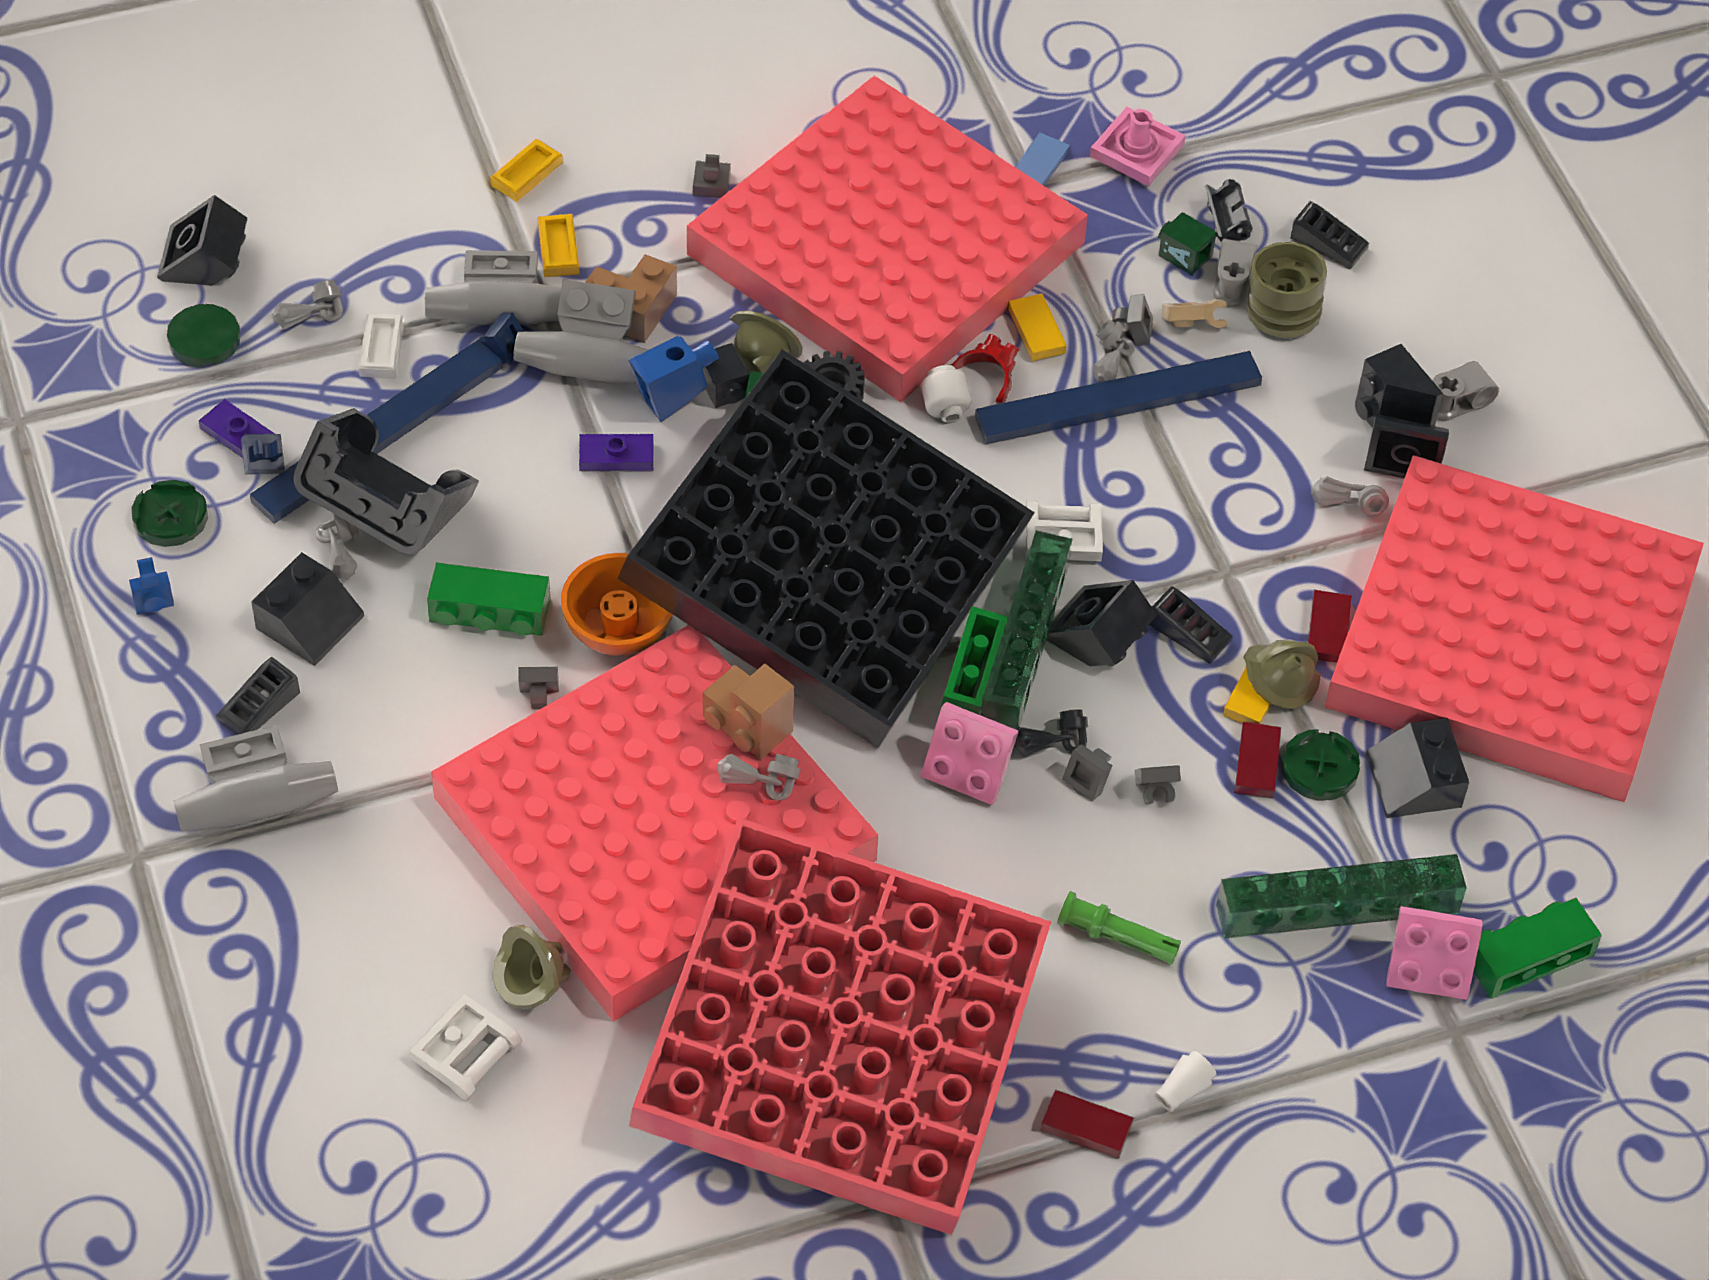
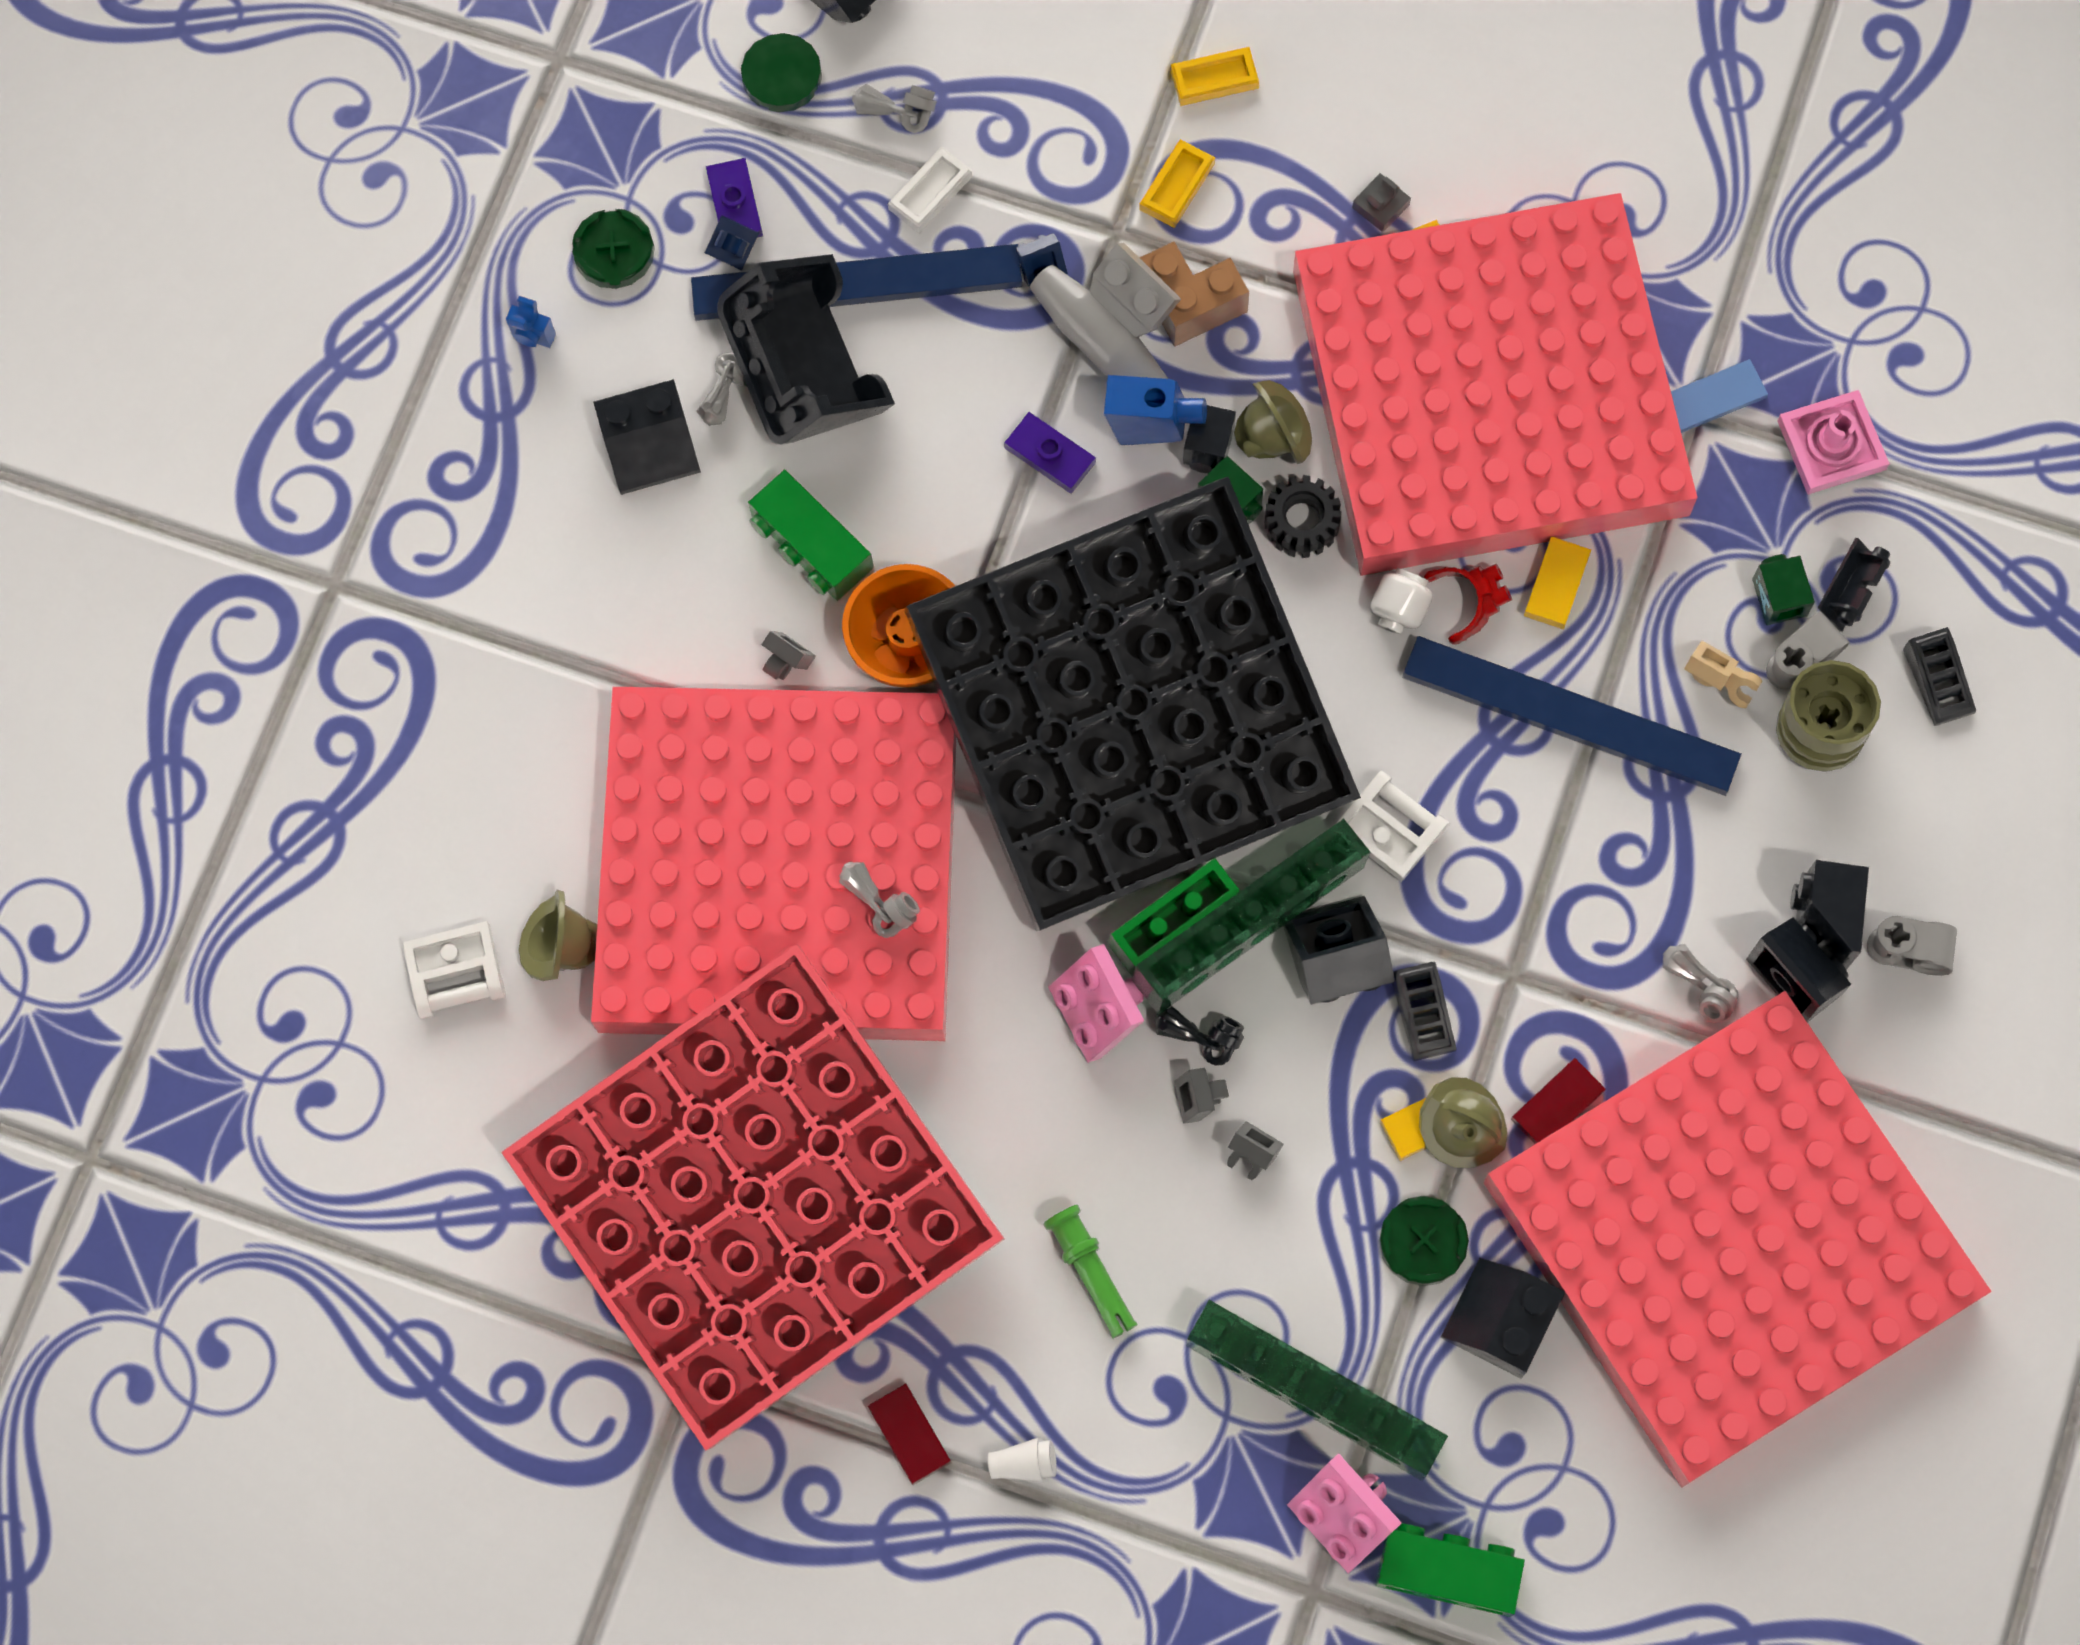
camera: 45 degrees right, 20 degrees up
(252, 782) = (471, 582): light grey plate -> none
(270, 677) = (559, 510): black slope -> none
(495, 285) = (1076, 202): light grey plate -> none
(751, 708) = (912, 832): medium nougat brick -> none
(1108, 366) = (1617, 640): light grey piece -> none
(1136, 319) = (1656, 644): dark grey tile -> none
(1258, 760) = (1368, 1193): dark red tile -> none

